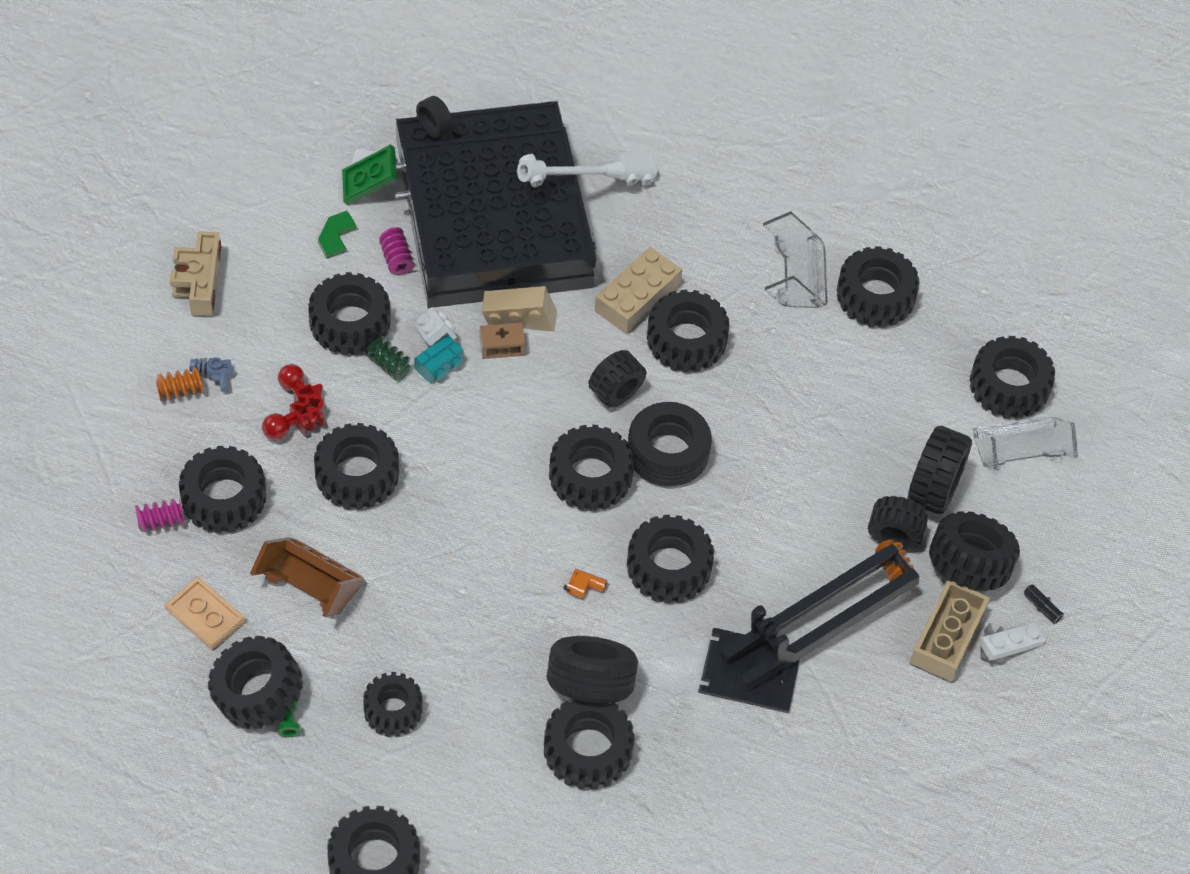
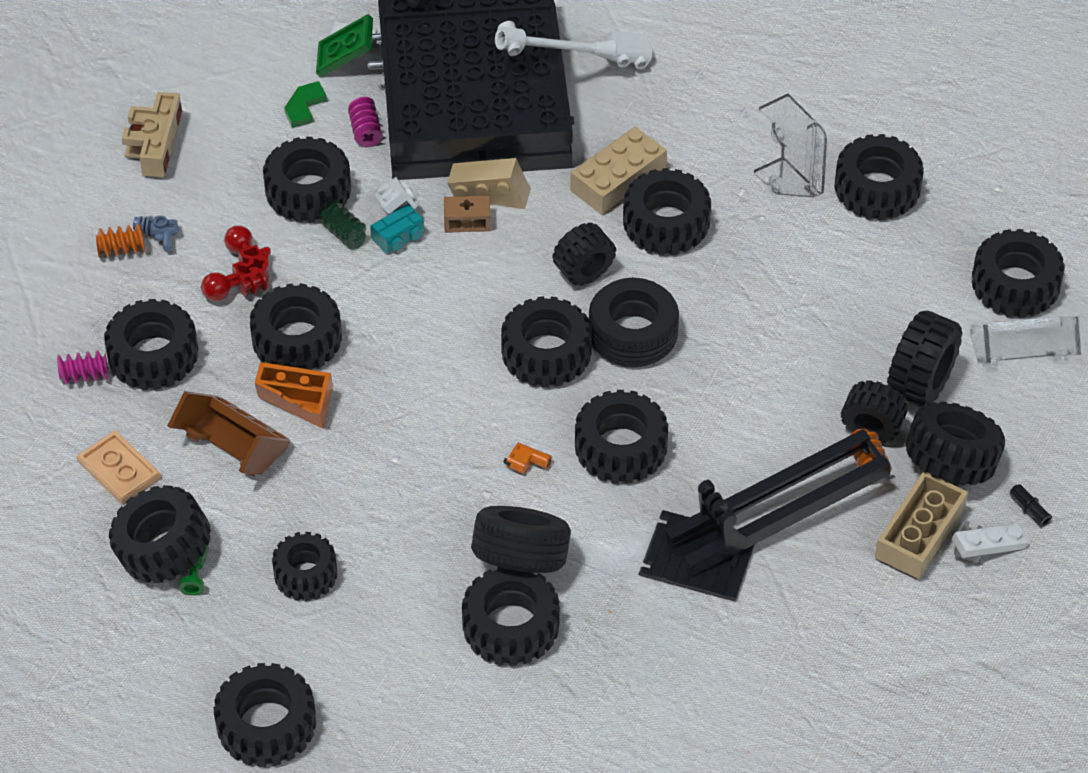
camera: 10 degrees right, 5 degrees down
(364, 529) = (296, 390): none -> orange wedge

